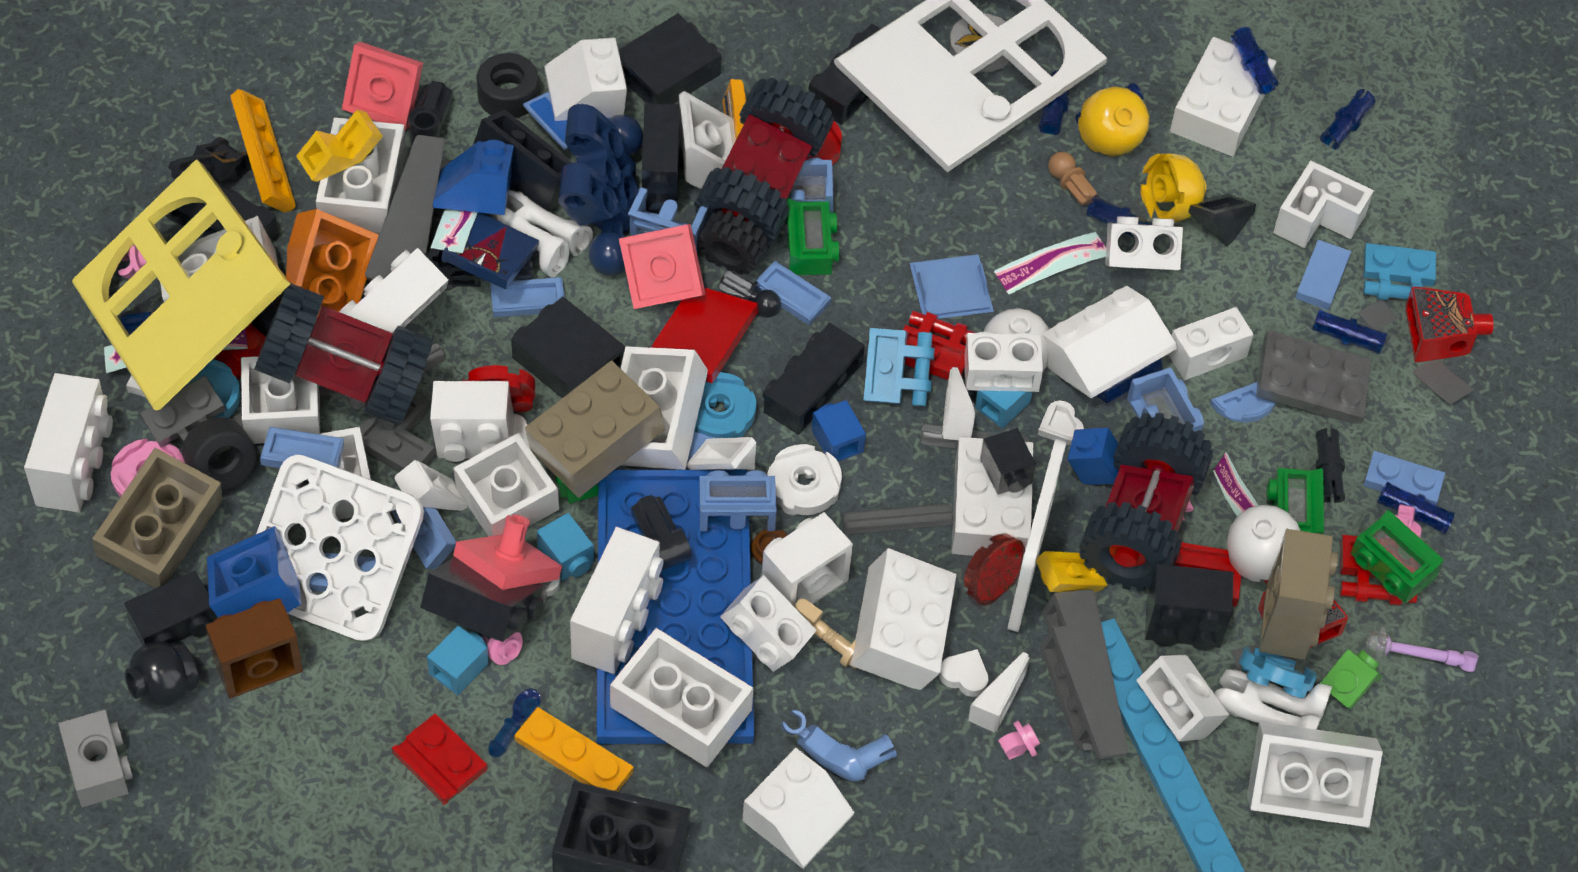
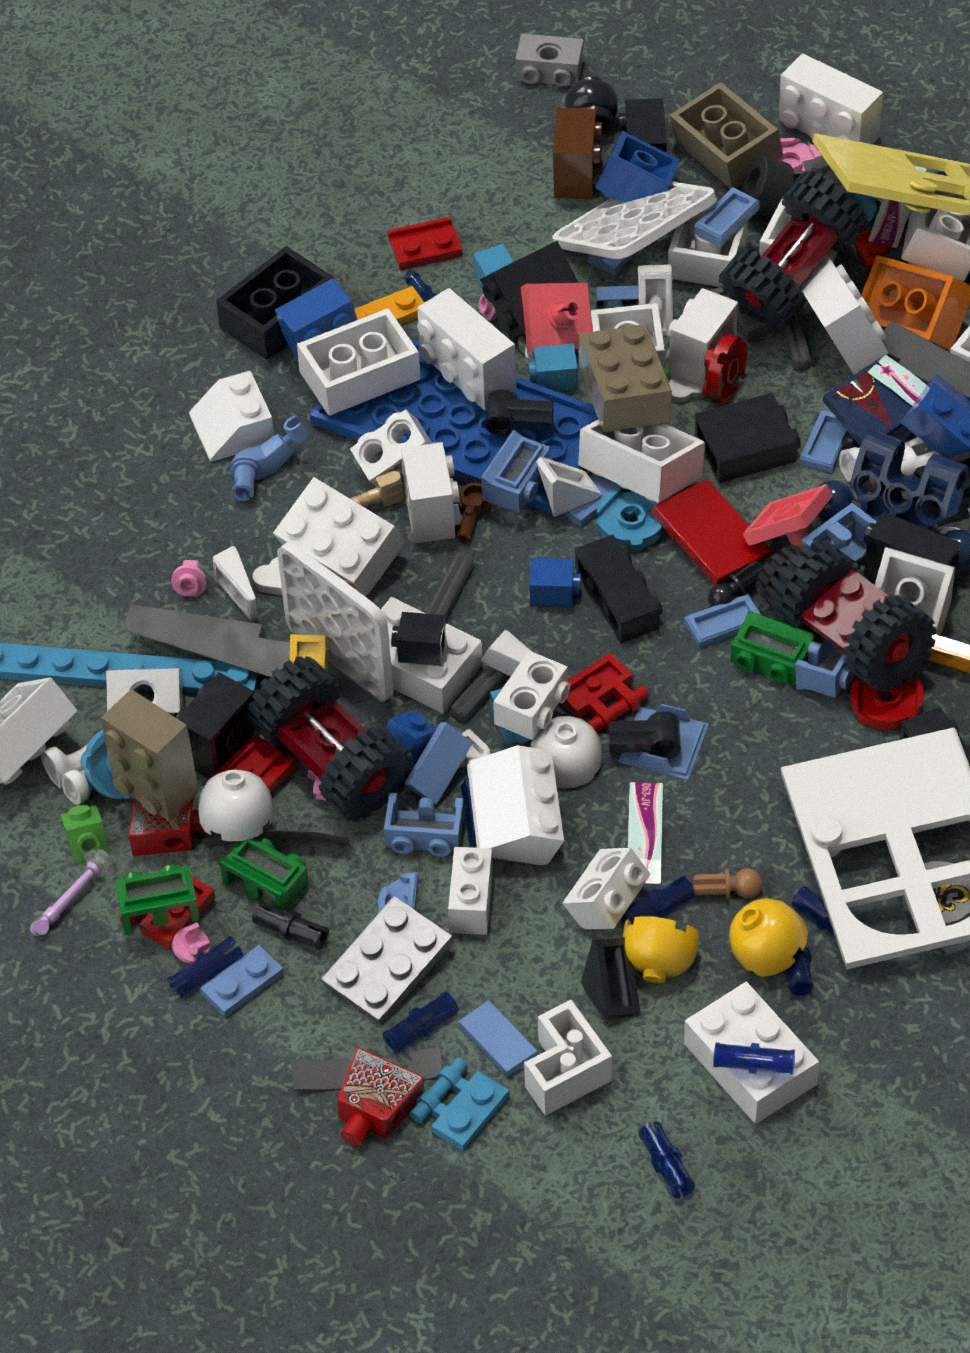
camera: 125 degrees right, 5 degrees down
(646, 761) = (315, 314): none -> blue slope
(809, 498) = (518, 529): white plate -> none
(886, 367) = (587, 641): dark azure plate -> none
(965, 278) = (656, 735): none -> black piece
(1089, 419) = (438, 762): none -> medium blue tile

